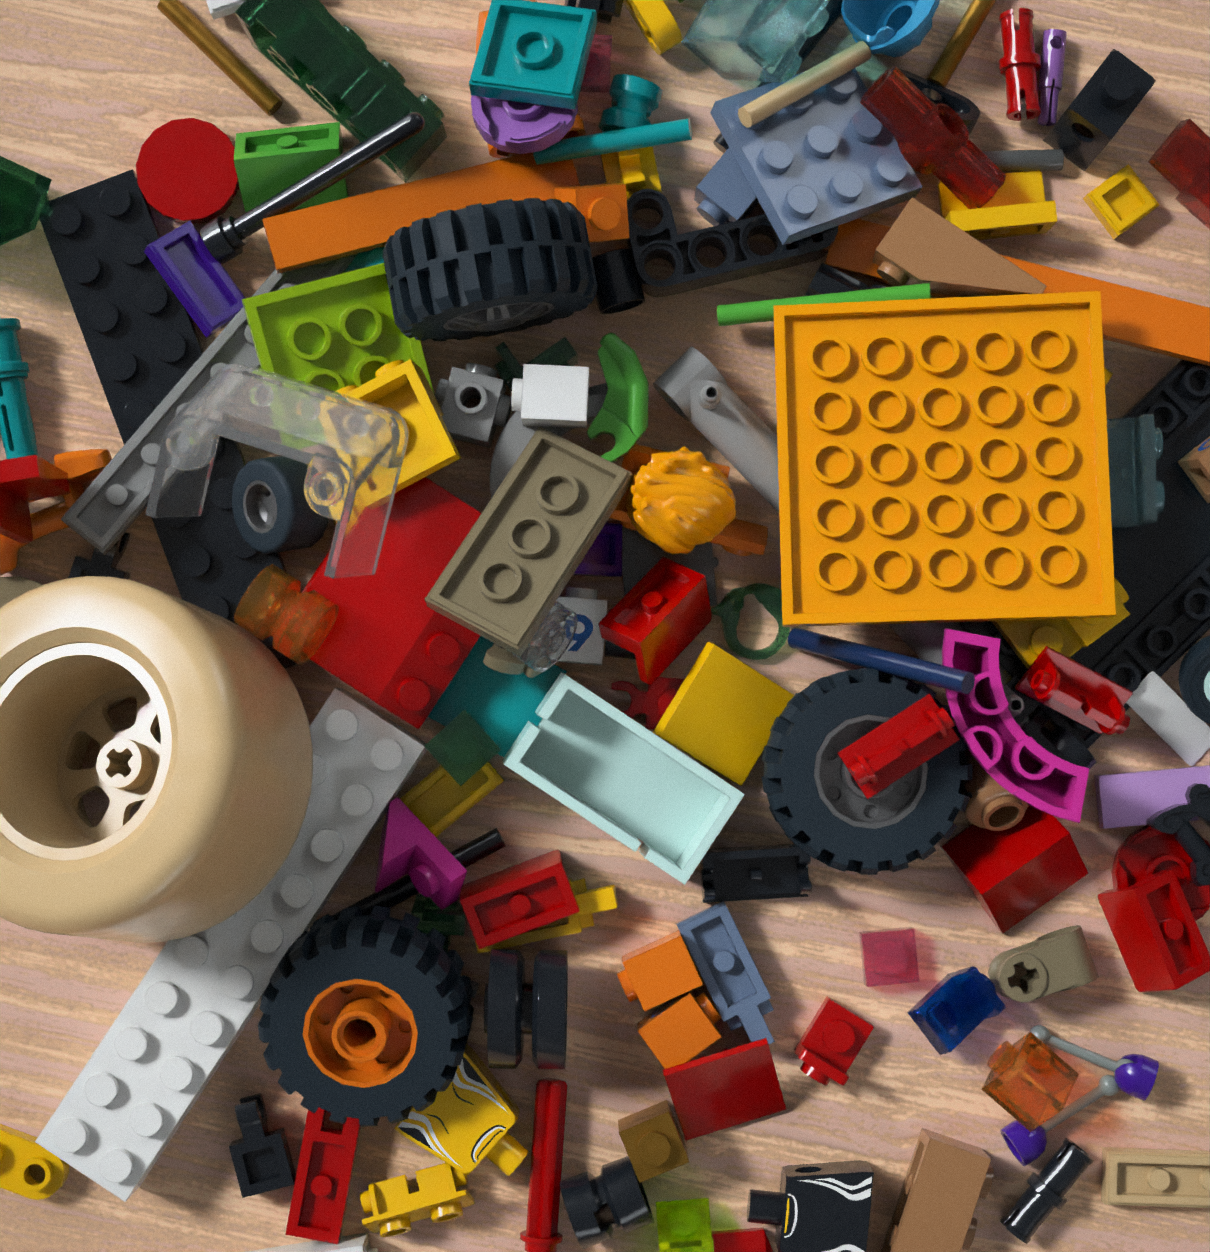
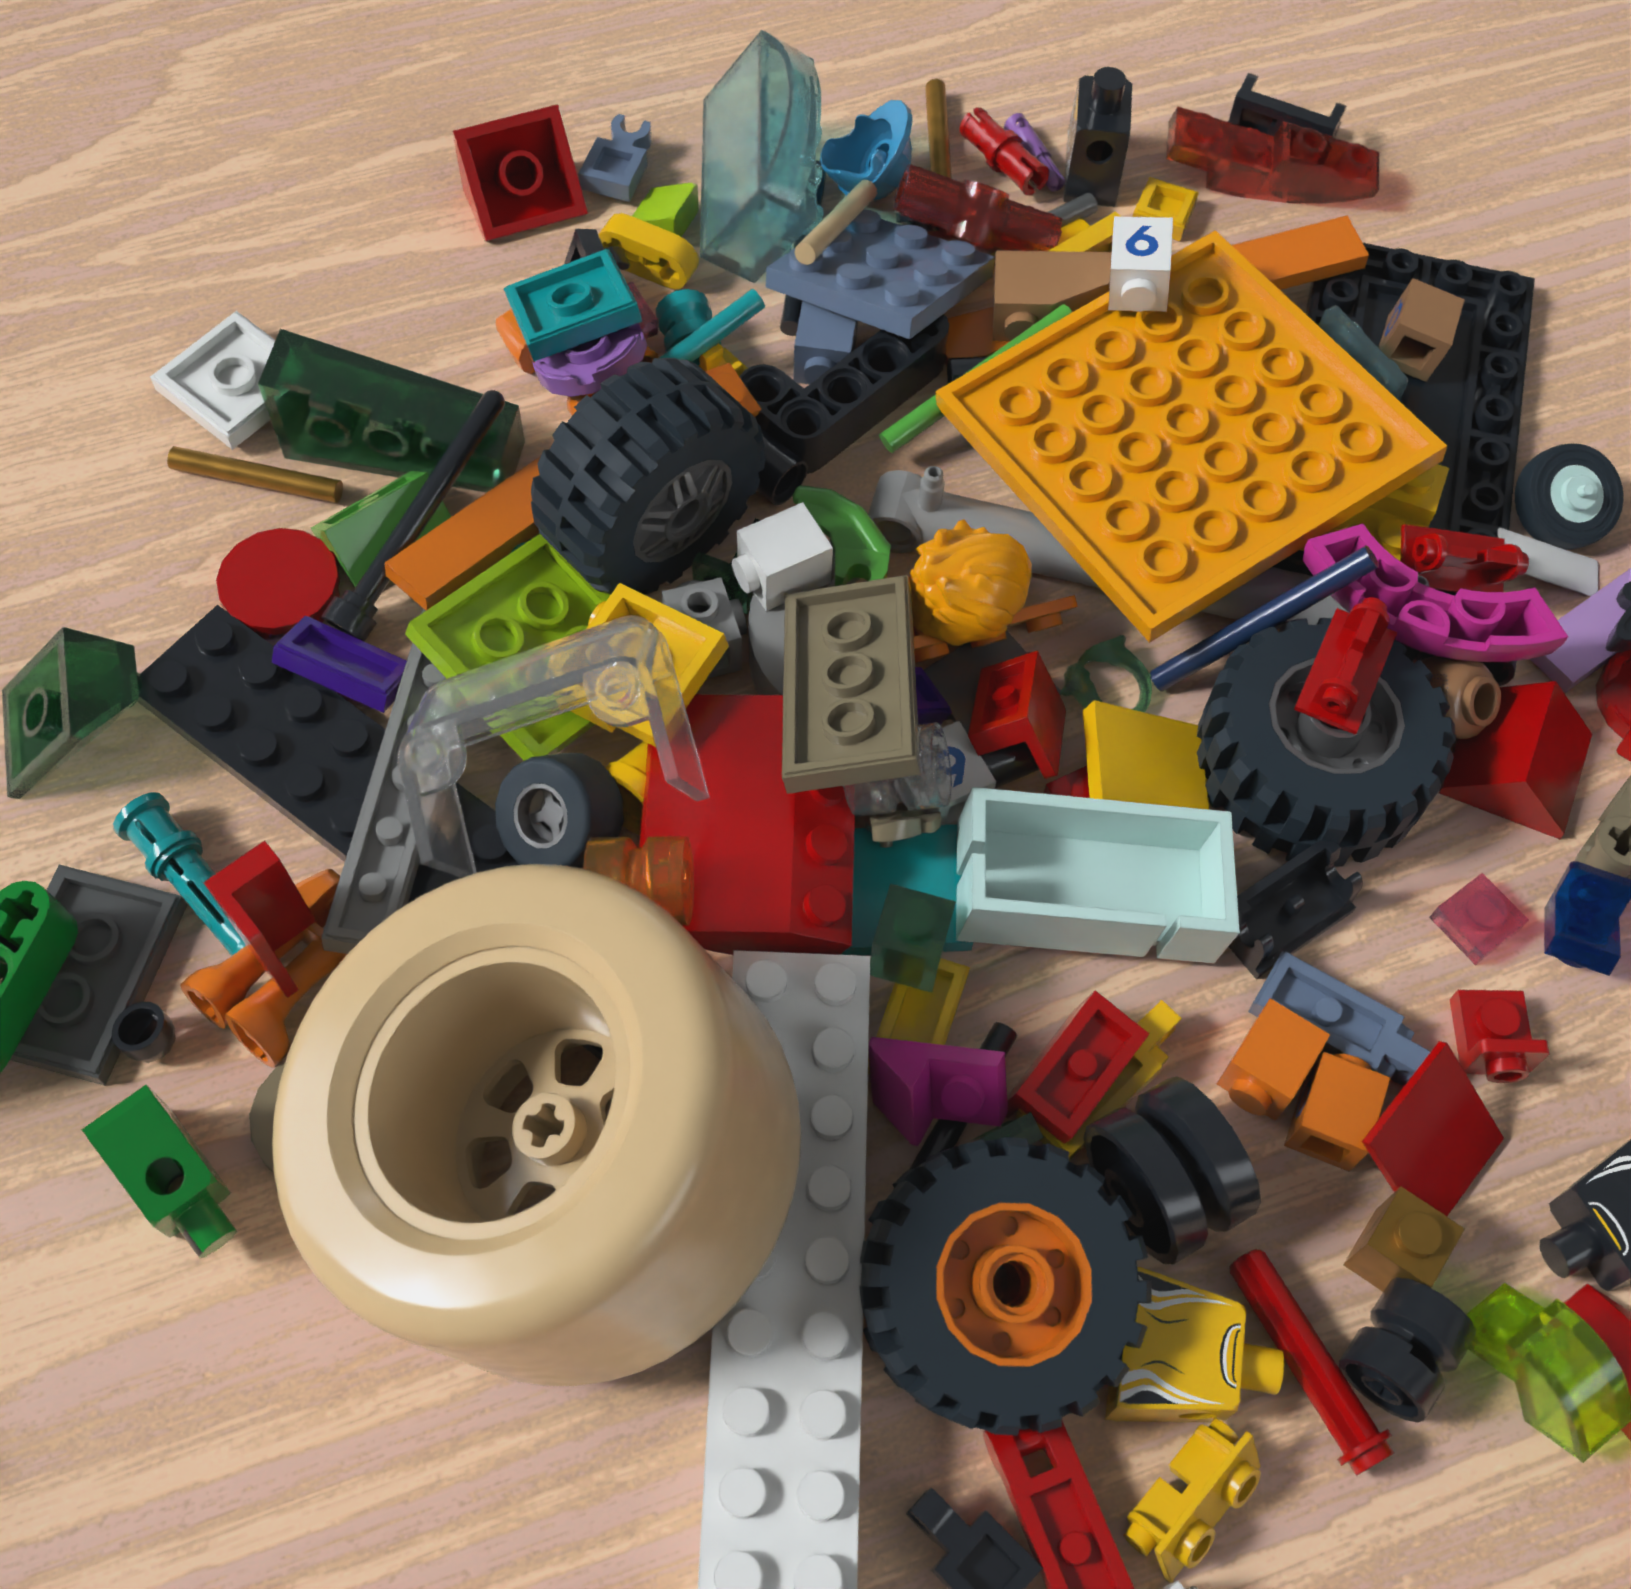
camera: 35 degrees left, 25 degrees down
(1001, 299) = (1140, 263): none -> white brick

